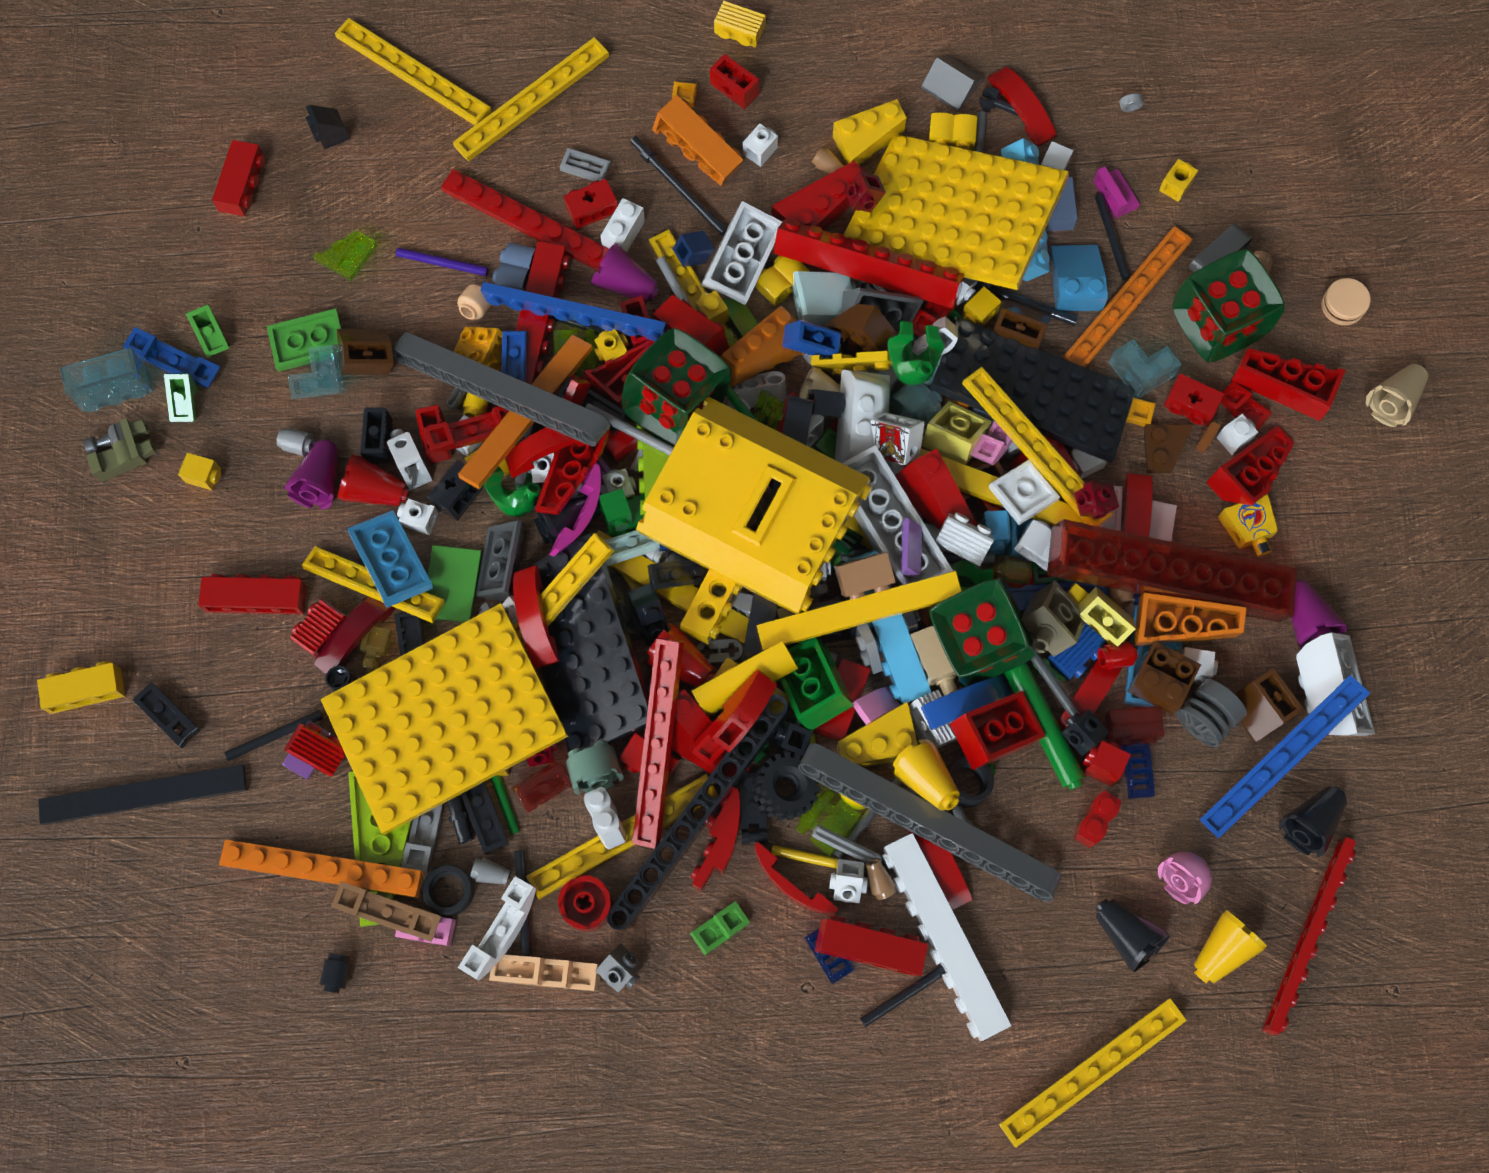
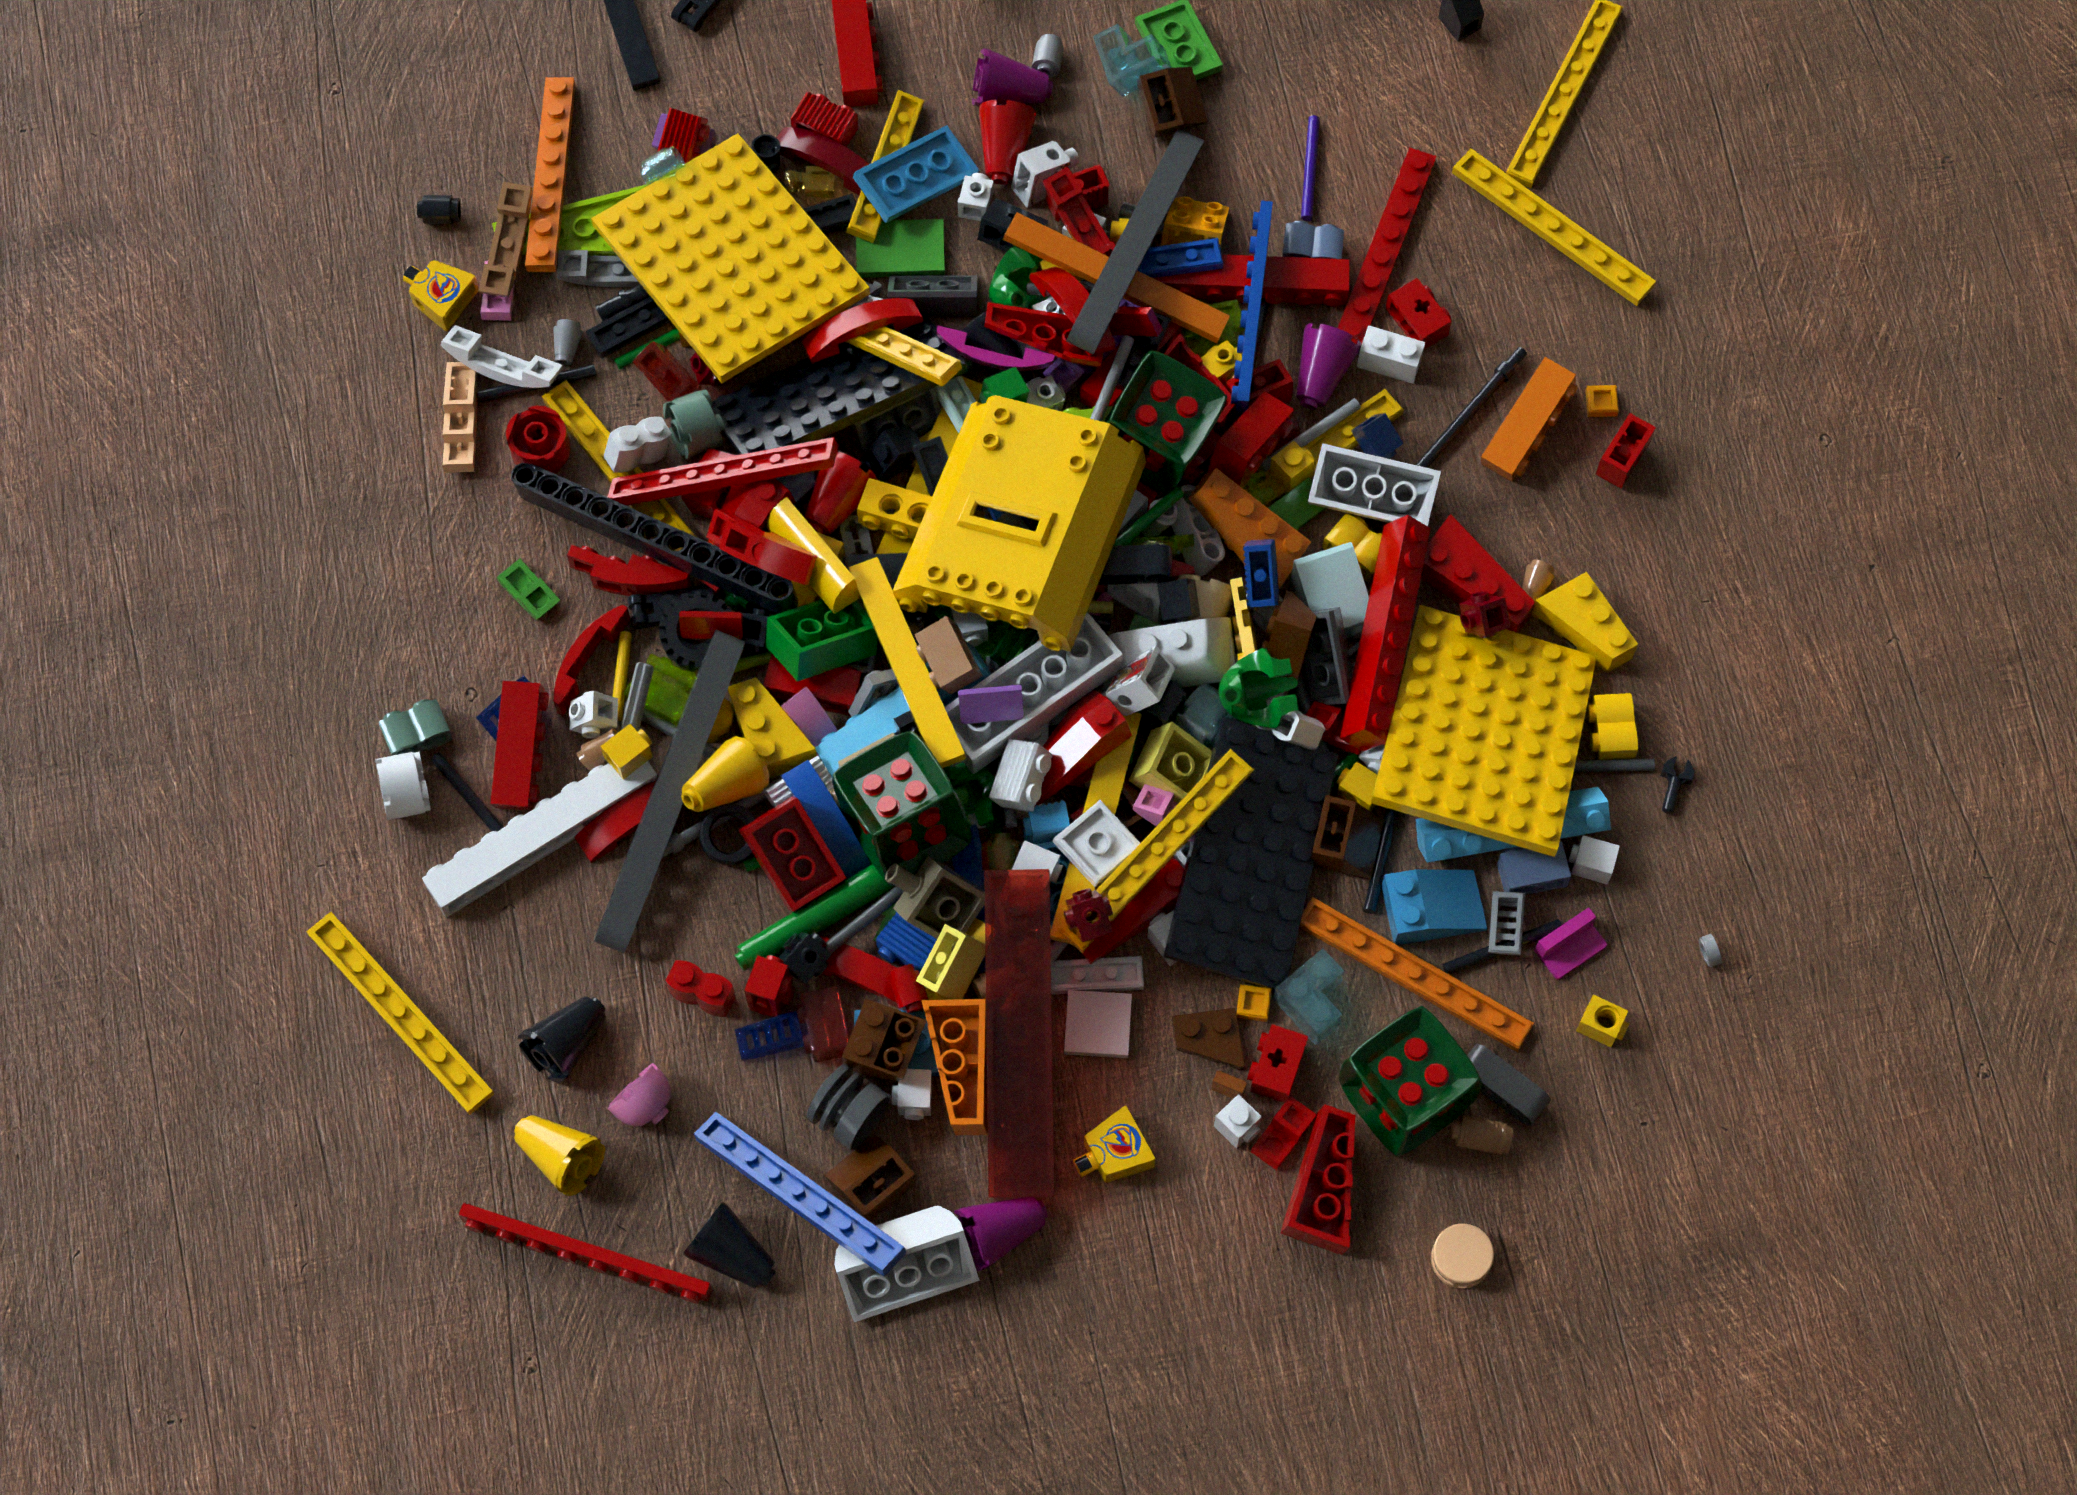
camera: 80 degrees right, 5 degrees down
(271, 736) = (695, 99): black bar -> none
(340, 766) = (661, 165): none -> clear light blue brick
(347, 255) = (1297, 65): clear neon green wing -> none
(375, 434) = (1068, 130): black brick -> none
(418, 979) = (441, 291): none -> yellow torso
(434, 876) = (538, 284): black tyre -> none
(472, 303) = (1251, 203): light nougat head -> none
(582, 168) = (1471, 323): light grey tile -> none
(620, 968) = (469, 487): dark grey brick -> none
(739, 24) = (1717, 448): yellow brick -> none
(760, 144) = (1544, 497): white brick -> none
(789, 770) = (704, 623): none -> red slope
(839, 1036) = (415, 729): none -> sand green brick
(894, 851) = (627, 750): none -> yellow brick
(895, 1050) = (403, 785): none -> white brick
(951, 81) = (1695, 721): slope -> none
(1025, 104) = (1676, 813): red slope -> none
(1097, 236) = (1507, 899): none -> light grey slope
(1138, 504) = (1105, 1001): red slope -> none
(1252, 471) = (1189, 1142): red wedge -> none
(1398, 396) = (1334, 1330): tan cone -> none

